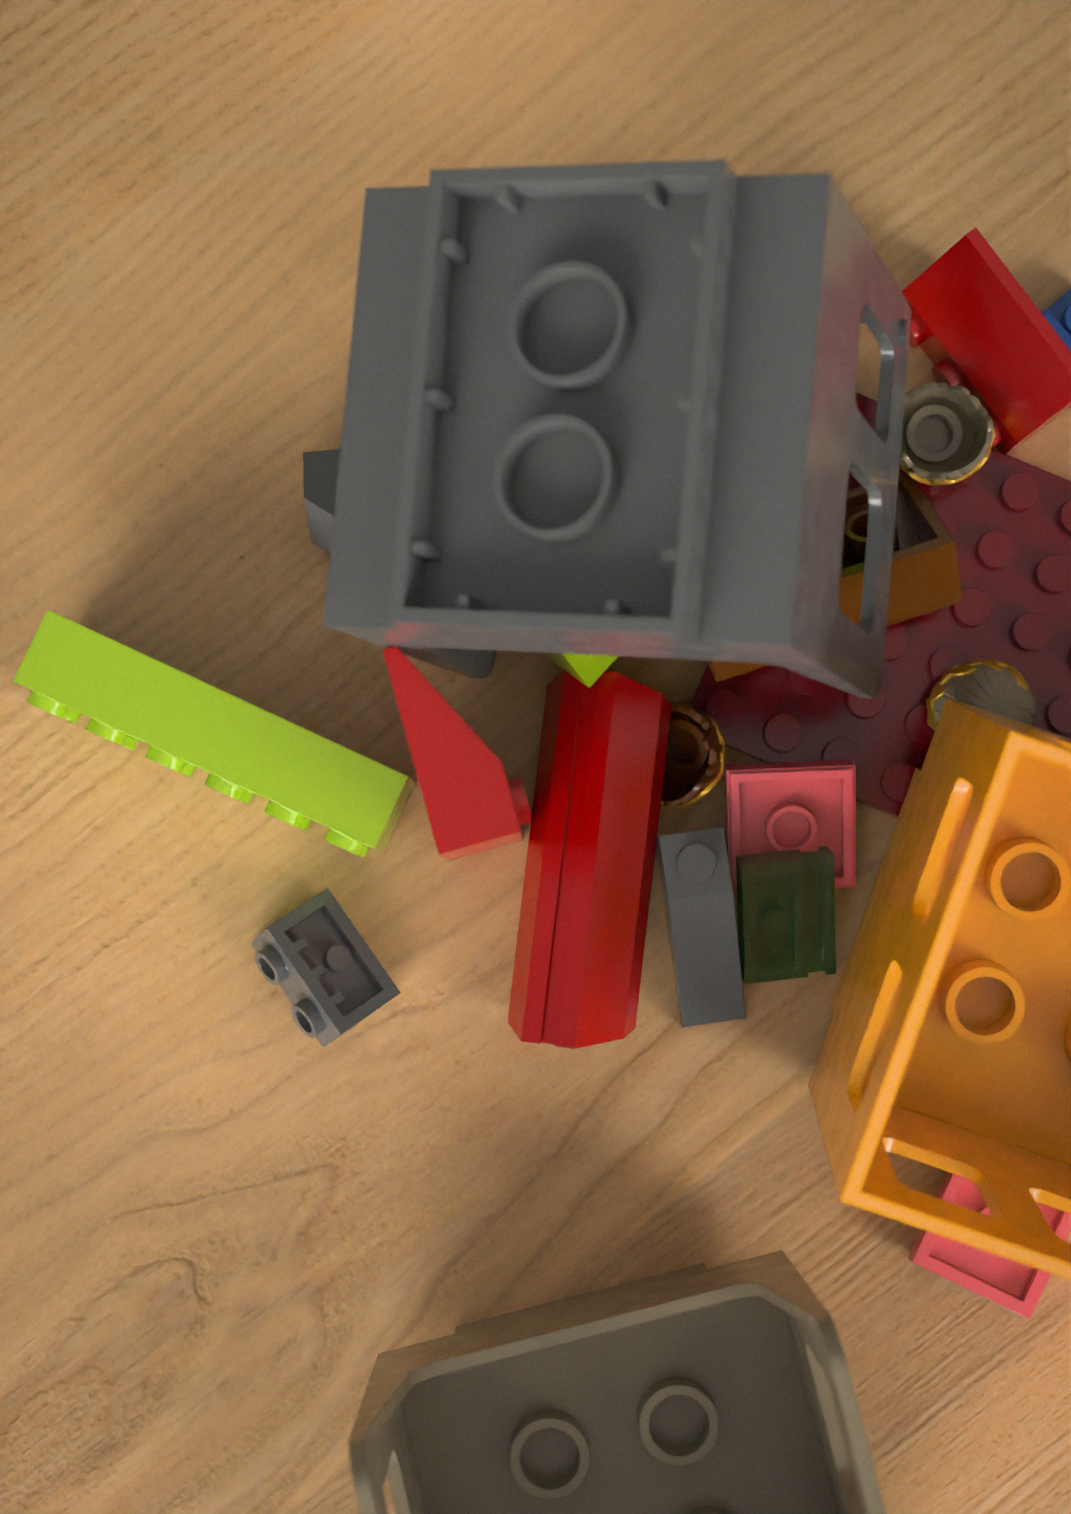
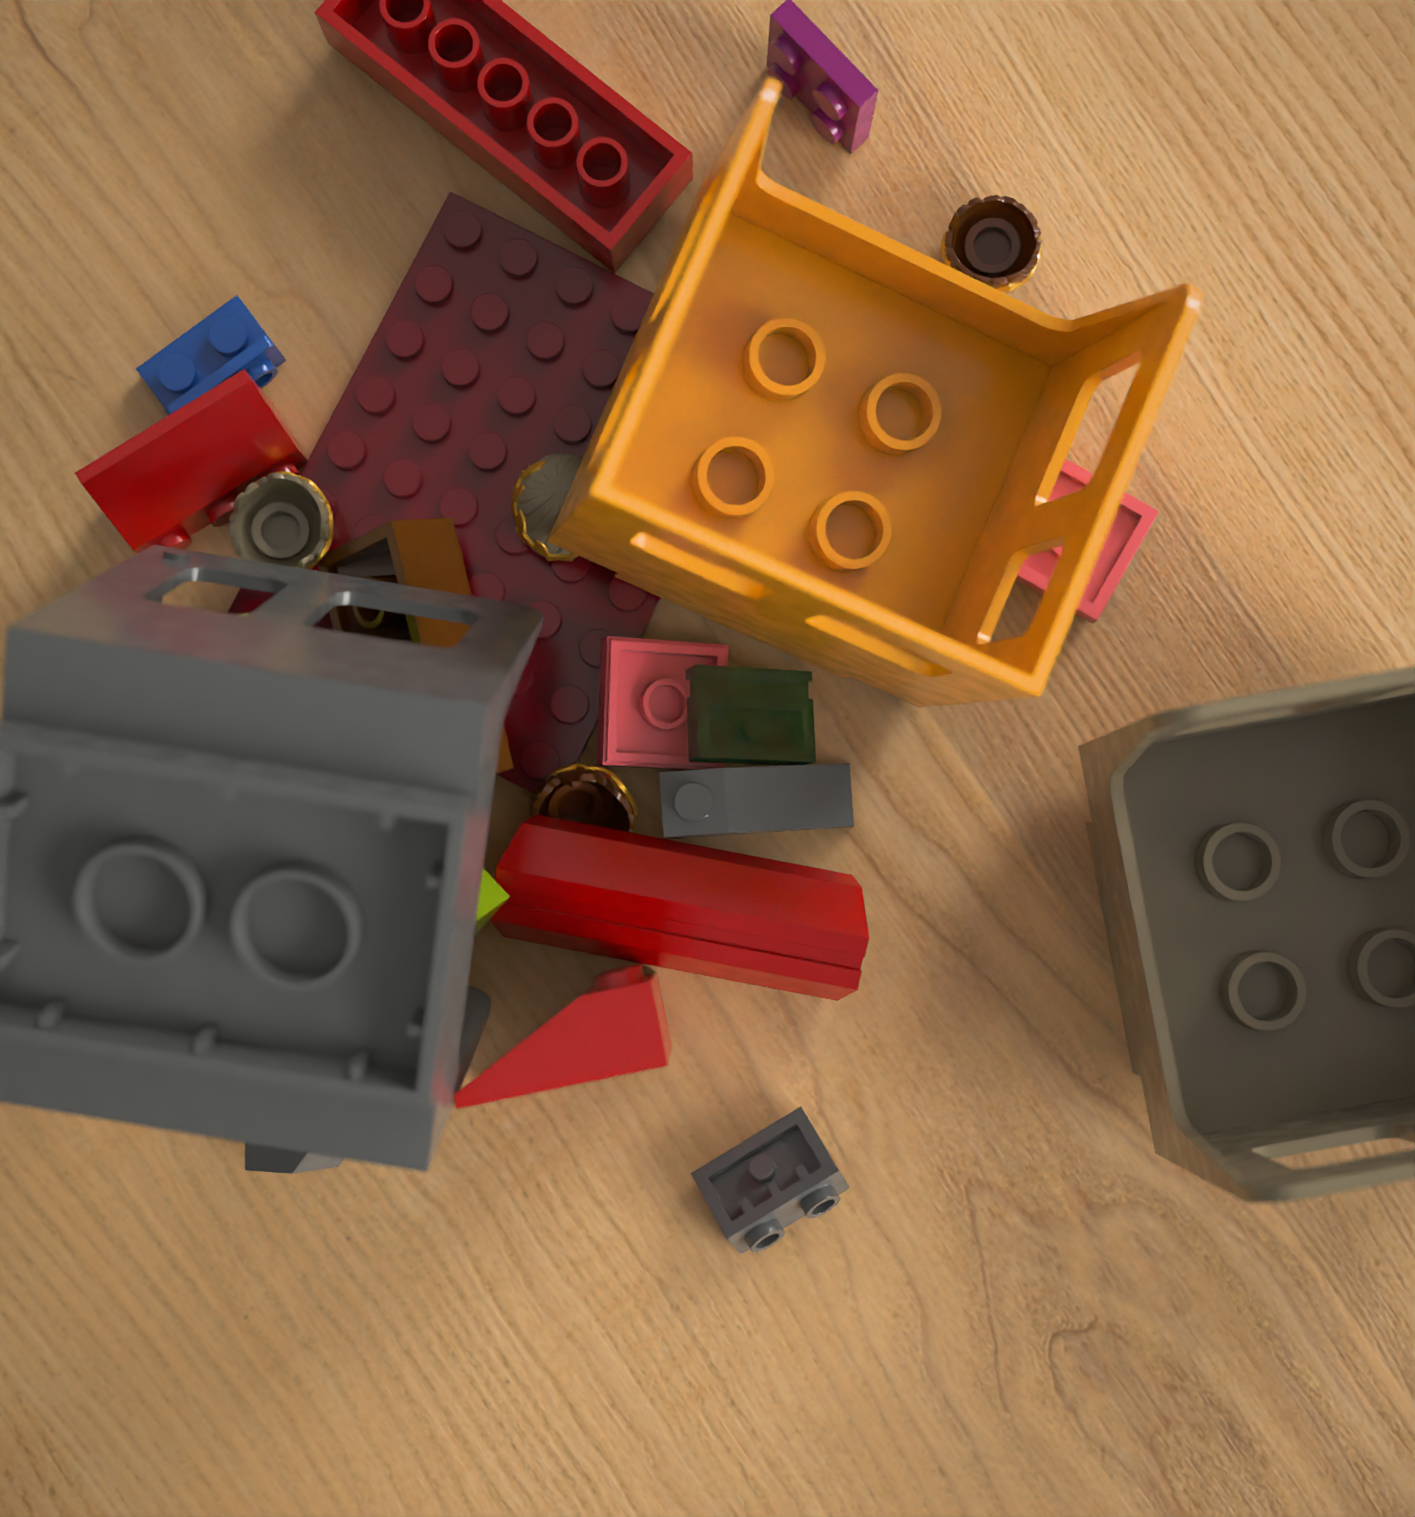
camera: 85 degrees left, 0 degrees up
(207, 728) = (520, 1292): lime brick -> none

